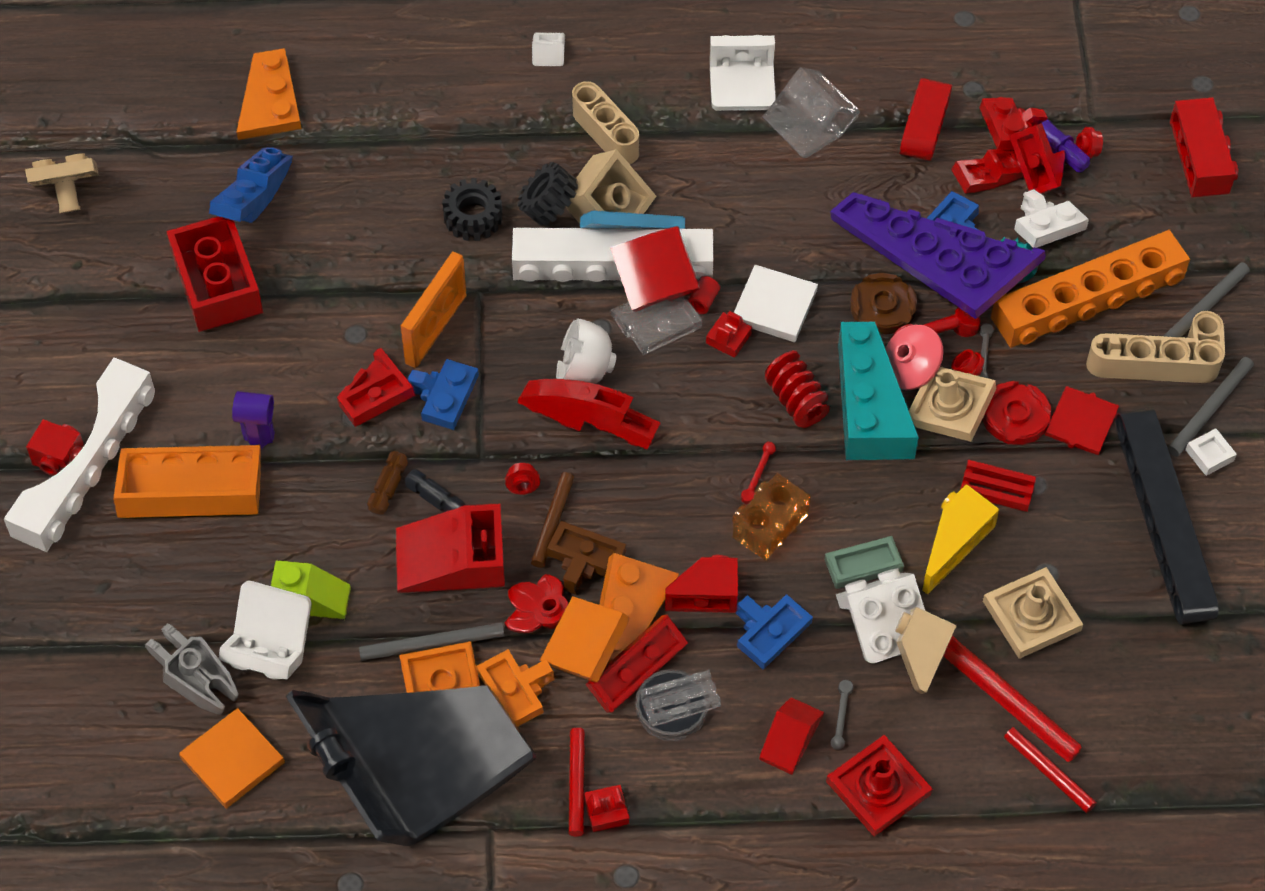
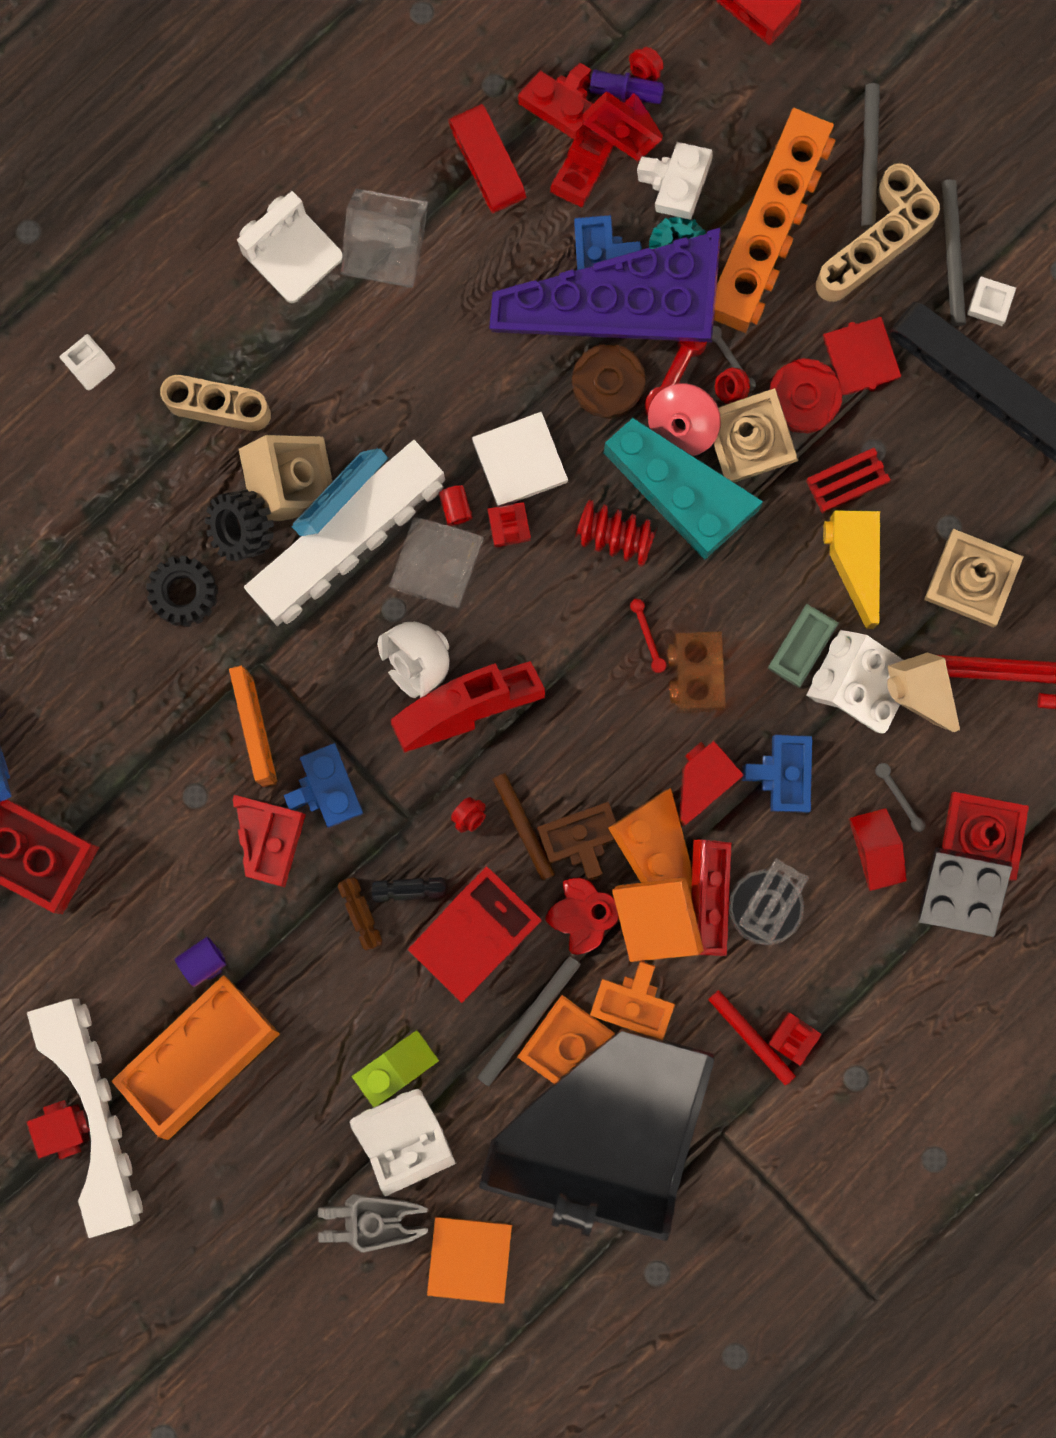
camera: 40 degrees left, 25 degrees up
(655, 268) = (405, 525): red slope -> none
(828, 807) = (964, 891): none -> plate

